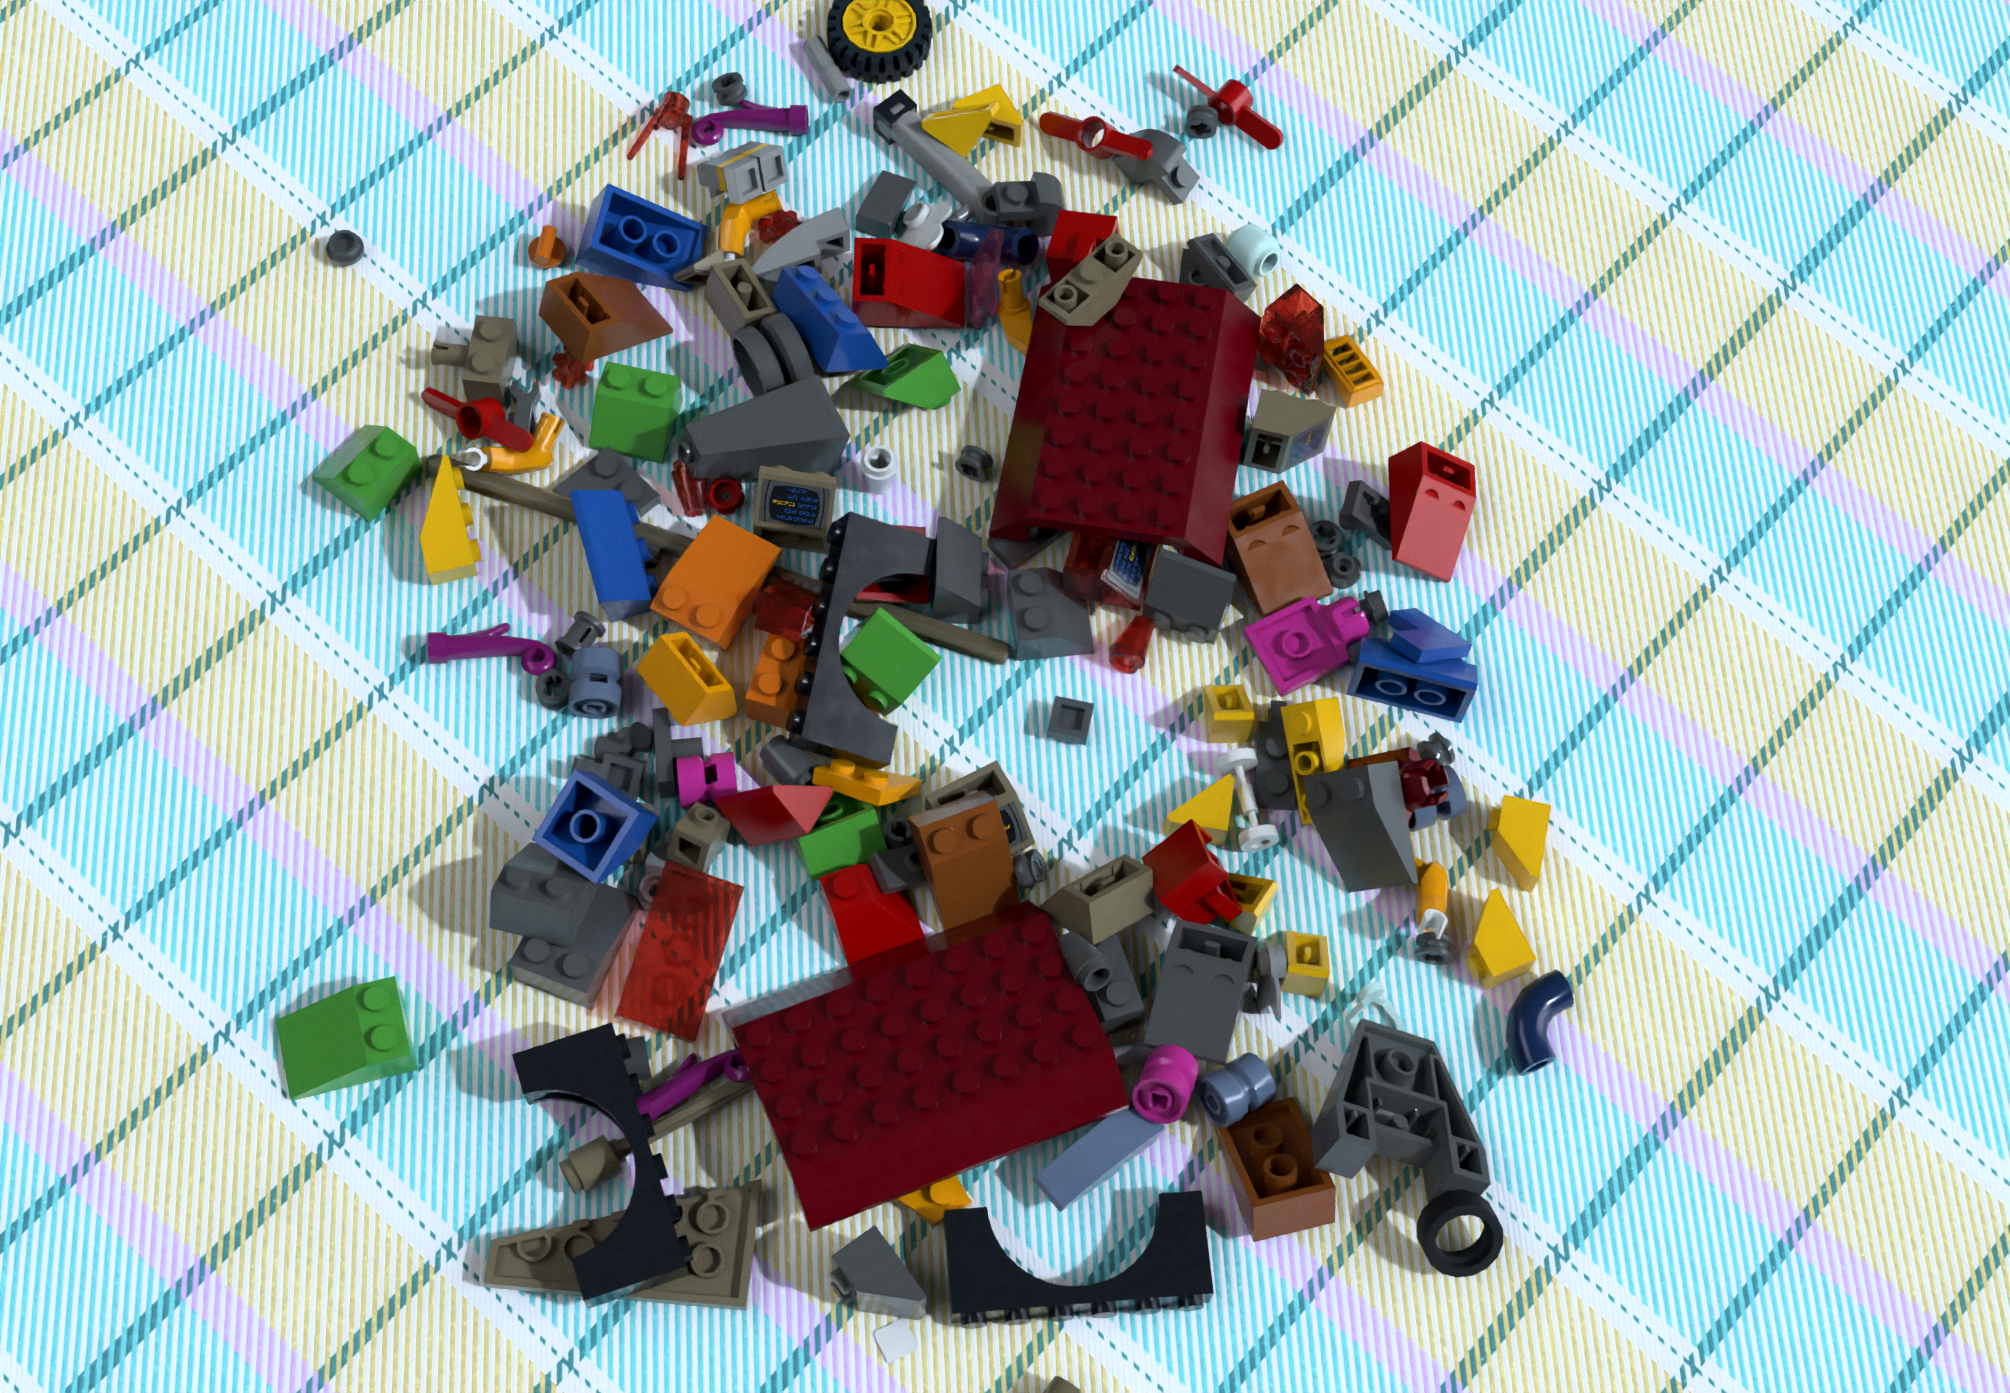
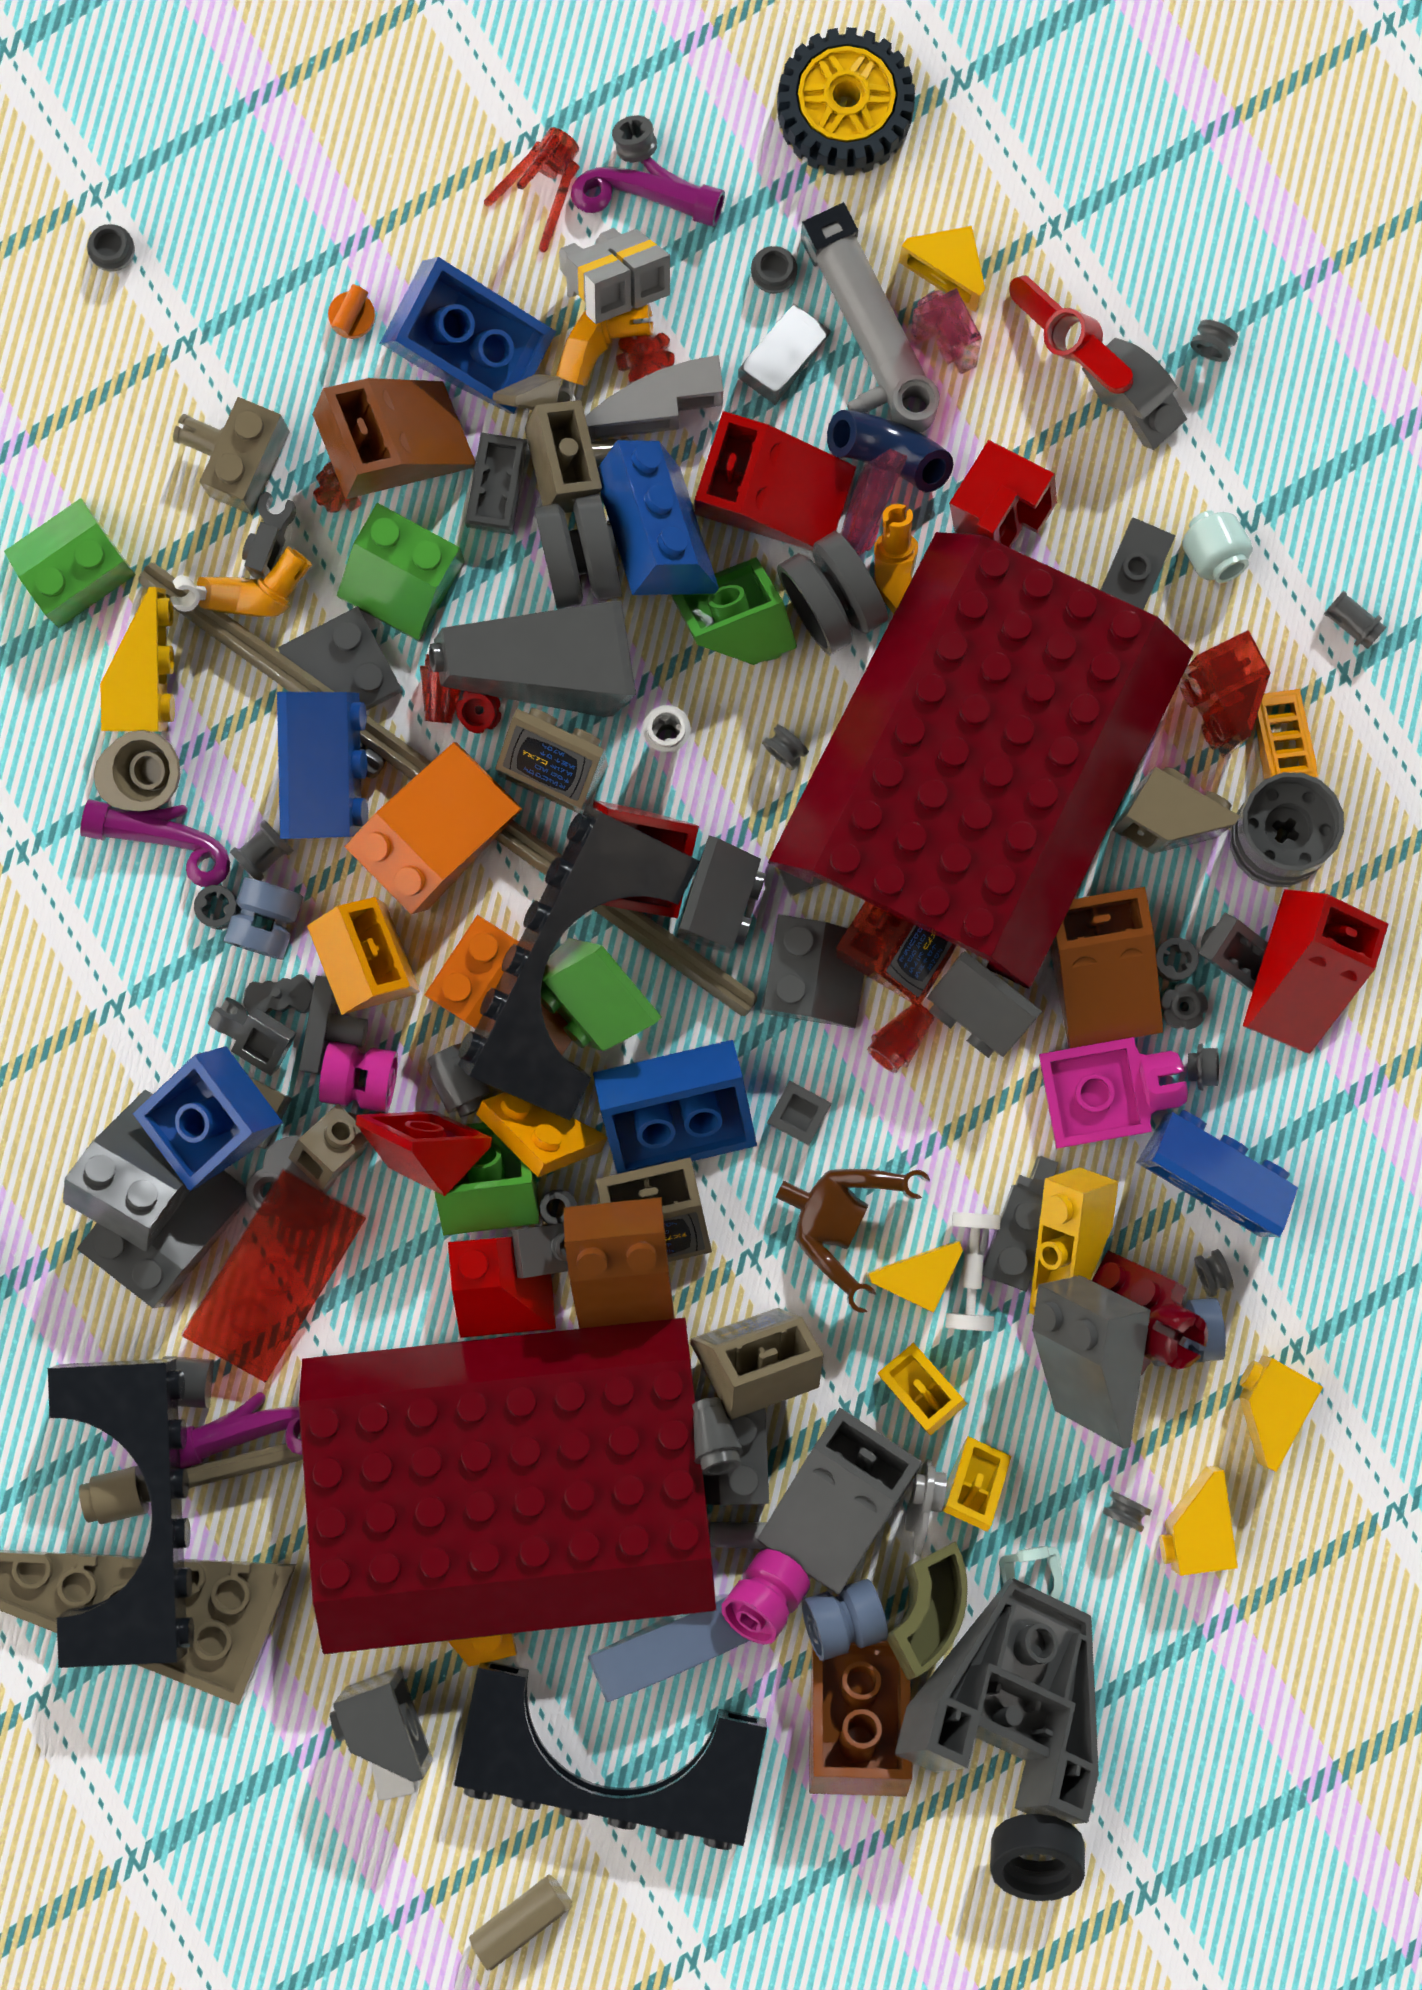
camera: 20 degrees right, 20 degrees up
(464, 599) = (137, 772): none -> dark tan piece
(480, 419) = (218, 537): red piece -> none
(693, 337) = (496, 483): none -> dark grey plate
(786, 608) = (503, 891): clear red piece -> none
(825, 66) = (764, 133): light grey piece -> none
(860, 149) = (774, 269): none -> dark grey plate
(925, 224) = (818, 406): white plate -> none
(960, 127) = (902, 276): yellow slope -> none
(972, 733) = (675, 1107): none -> blue slope
(978, 341) = (832, 592): none -> dark grey wheel
(1005, 147) = (950, 319): none -> clear pink bracket
(1029, 868) = (695, 1289): dark grey piece -> none
(1032, 201) = (963, 412): dark grey brick -> none
(1094, 283) = (985, 580): dark tan slope -> none
(1123, 787) = (833, 1216): none -> reddish brown piece
(1191, 877) = (871, 1364): red plate -> none
(1220, 267) = (1167, 564): dark grey slope -> none
(1227, 713) = (986, 1150): yellow slope -> none
(1234, 106) = (1259, 328): red piece -> none
(1306, 1056) = (933, 1611): none -> olive brick
(1372, 278) = (1355, 620): none -> dark grey pin
(1373, 420) = (1307, 813): none -> dark grey wheel
(1424, 638) = (1255, 1135): blue tile -> none
(1431, 897) = (1144, 1456): light orange arm -> none
(1530, 1020) = (1208, 1627): dark blue cylinder -> none

